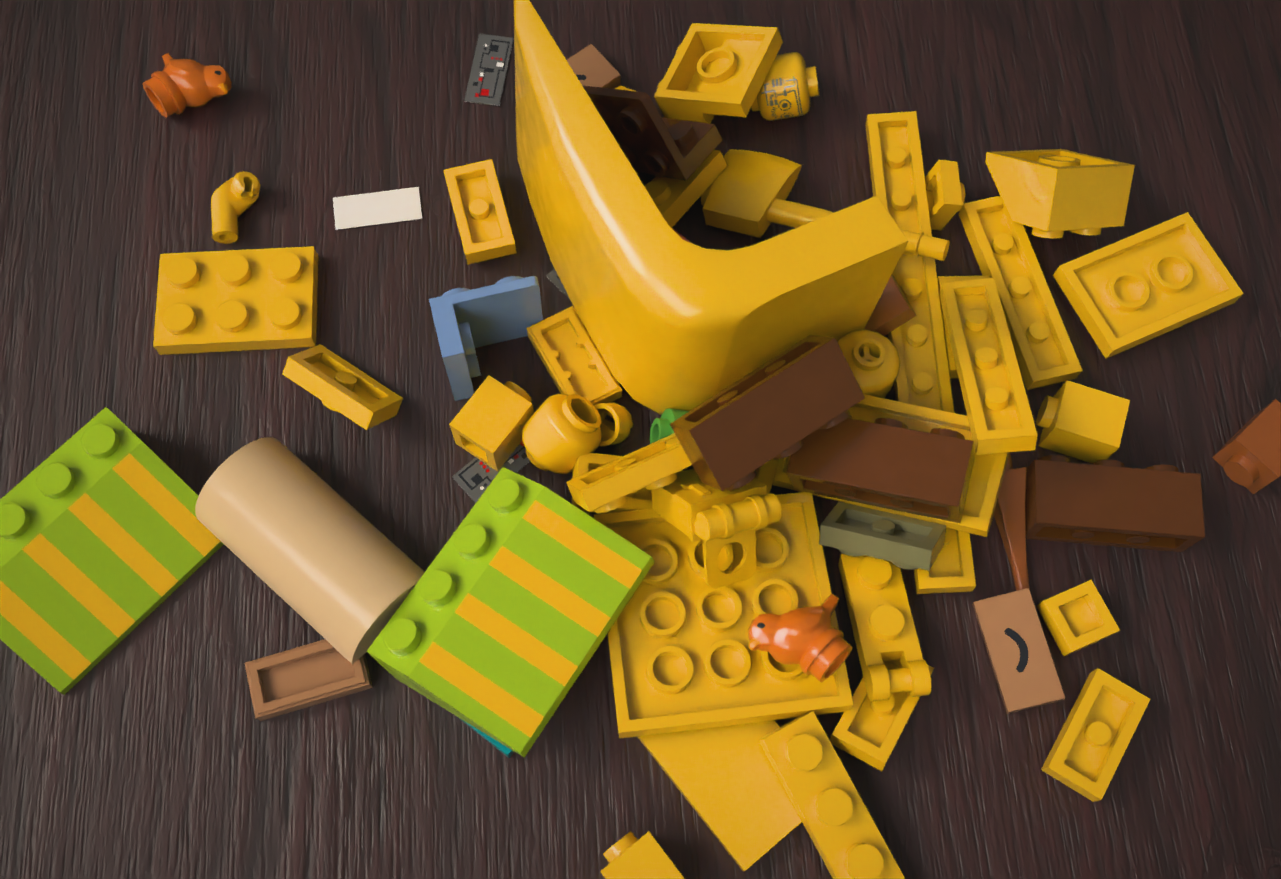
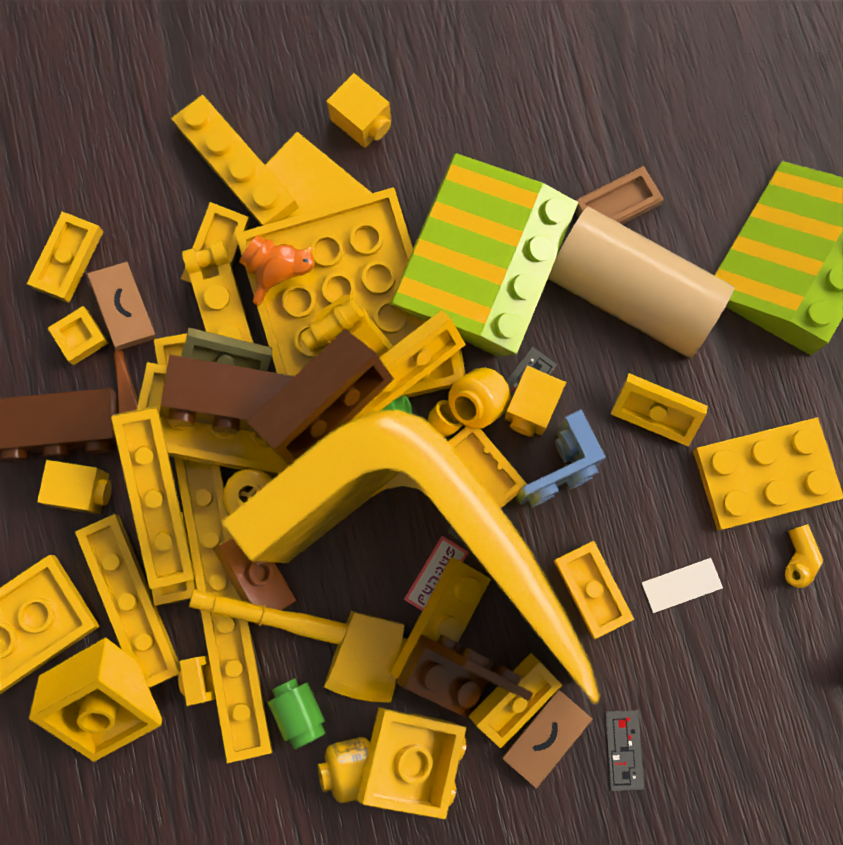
camera: 175 degrees right, 10 degrees up
(835, 147) = (296, 713): none -> bright green brick

